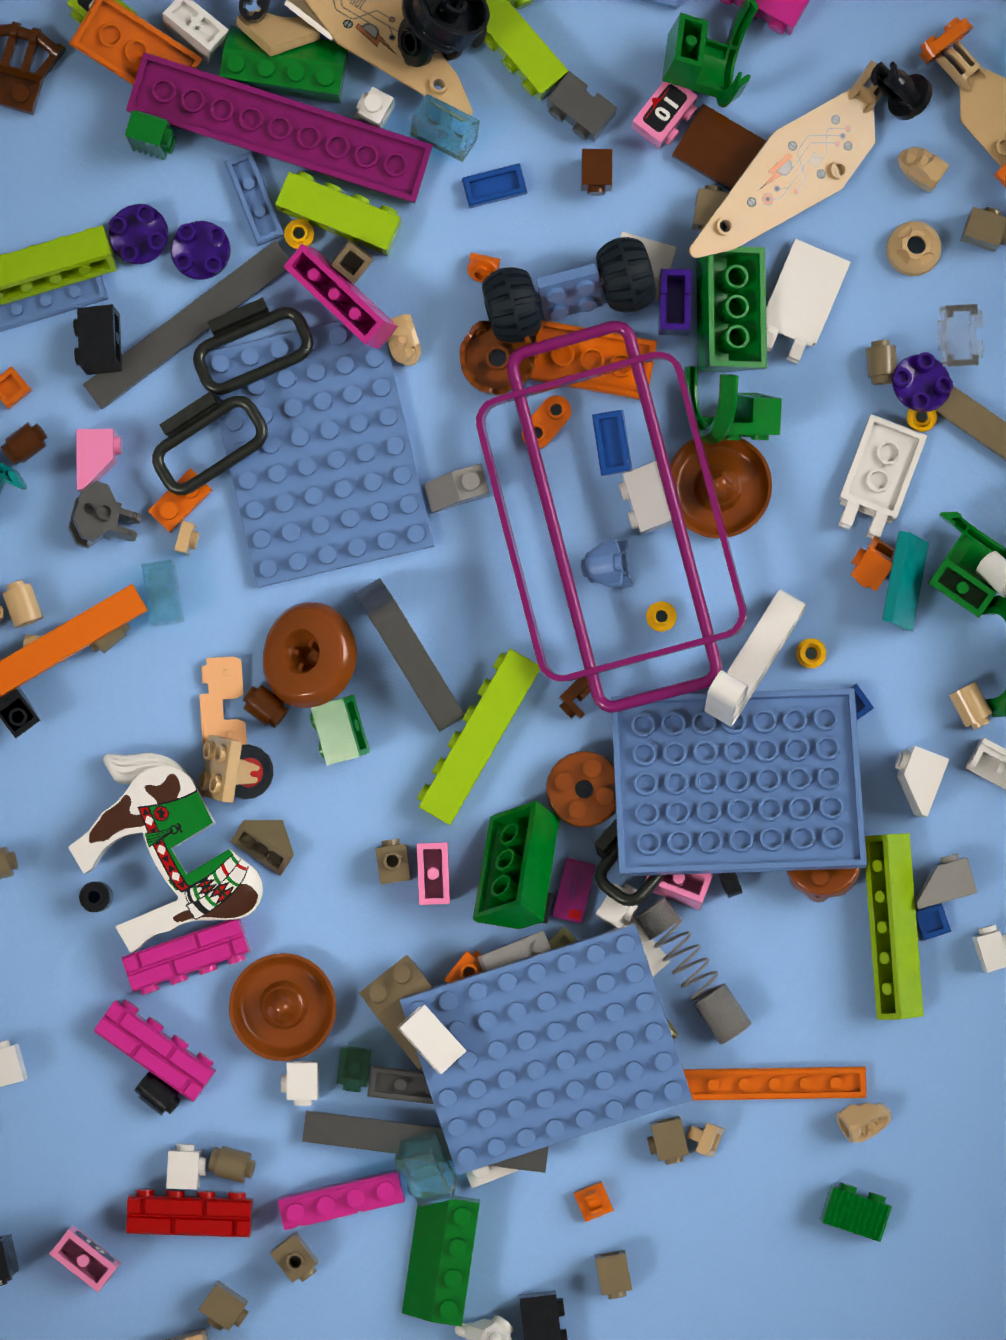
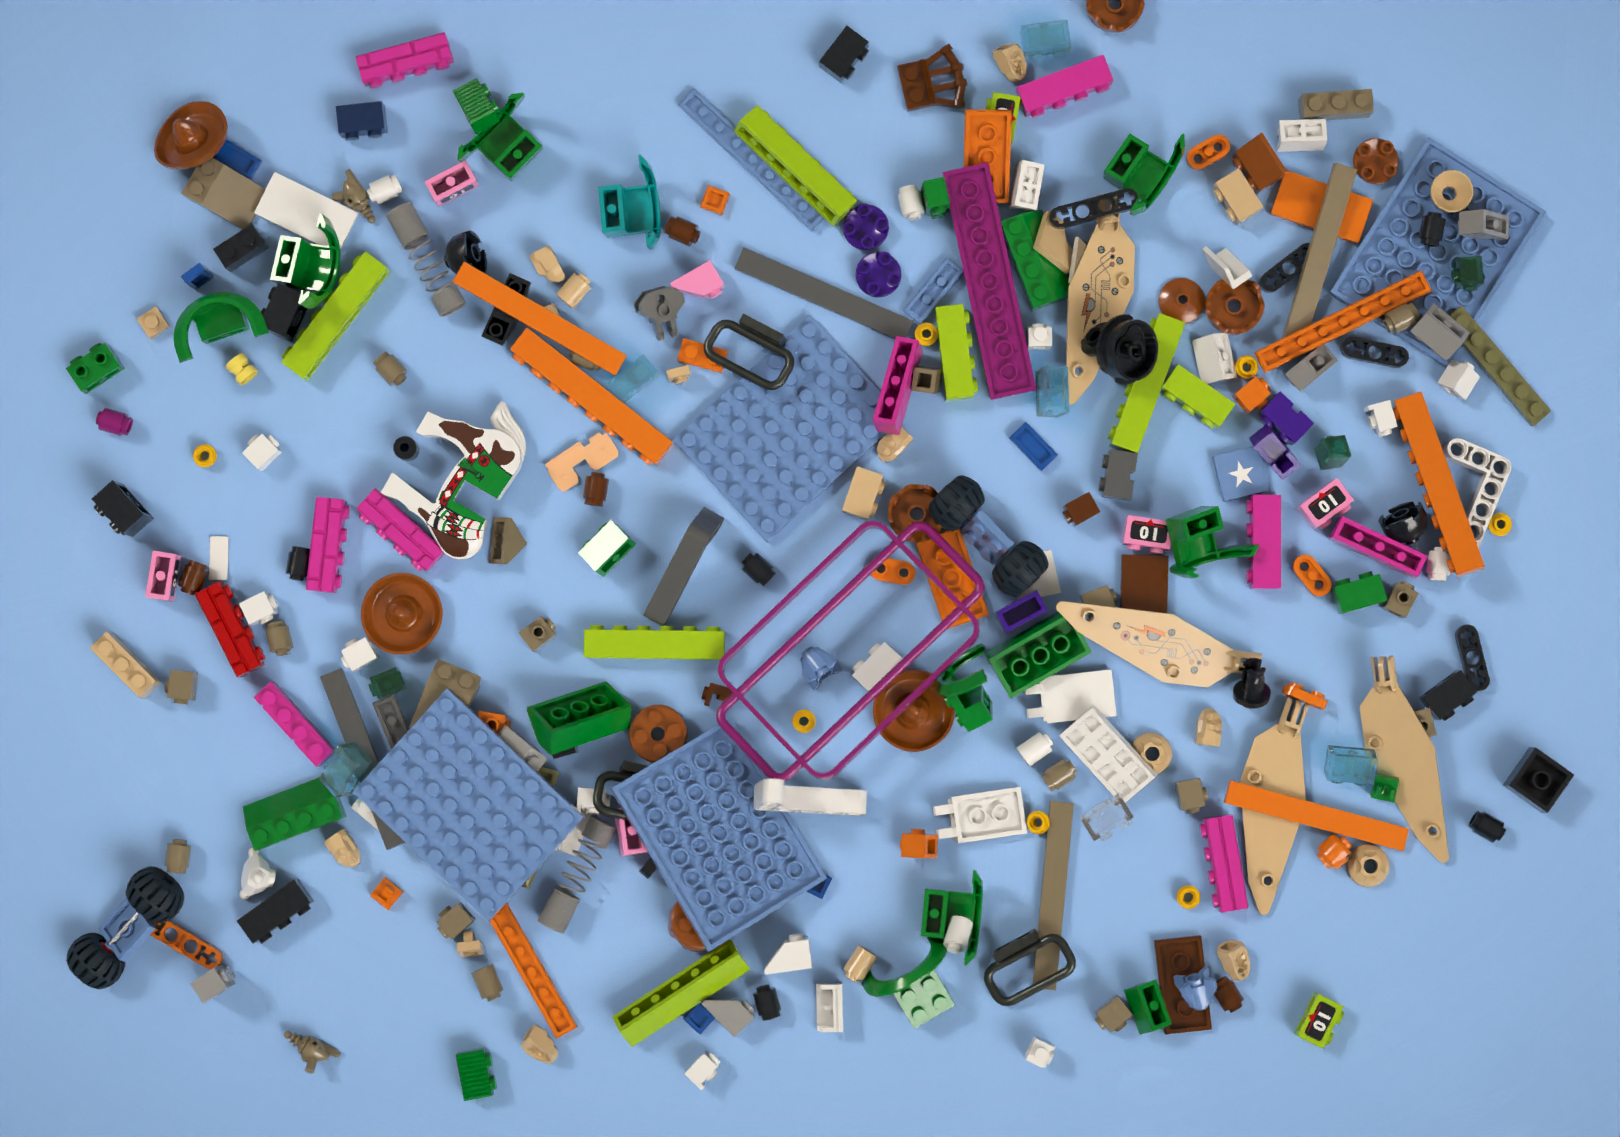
camera: 65 degrees right, 0 degrees up
(98, 339) = (779, 240): black brick -> none
(99, 1184) = (218, 558): none -> white sticker
(105, 1225) = (192, 577): none -> reddish brown brick
(139, 167) = (911, 202): none -> white brick
(155, 652) = (591, 396): none -> orange brick
(234, 770) = (540, 493): tan plate -> none
(242, 323) = (841, 328): pearl dark grey bar -> none
(295, 1258) = (240, 715): dark tan brick -> none
(309, 655) = (645, 499): dark orange hat -> none
(431, 1039) = (431, 724): white hinge -> none
(433, 873) = (545, 664): bright pink brick -> none
(440, 405) = (862, 493): none -> tan brick
(456, 488) = (813, 535): light grey slope -> none
(459, 572) = (758, 569): none -> black brick
(481, 266) = (973, 469): orange plate -> none
(515, 1222) = (343, 848): none -> tan rock
(574, 890) = (587, 765): magenta tile -> none
(612, 442) = (897, 622): blue tile -> none
(613, 1274) = (345, 933): dark tan brick -> none
(759, 1141) = (487, 982): none -> dark tan brick
(820, 650) = (835, 828): yellow plate -> none
(837, 373) = (1035, 748): none -> white brick
(889, 294) = (1108, 754): none -> white plate
(905, 581) = (918, 872): teal tile -> none
(921, 383) = (1059, 809): dark purple dish -> none
(957, 834) = (767, 1002): none -> black brick

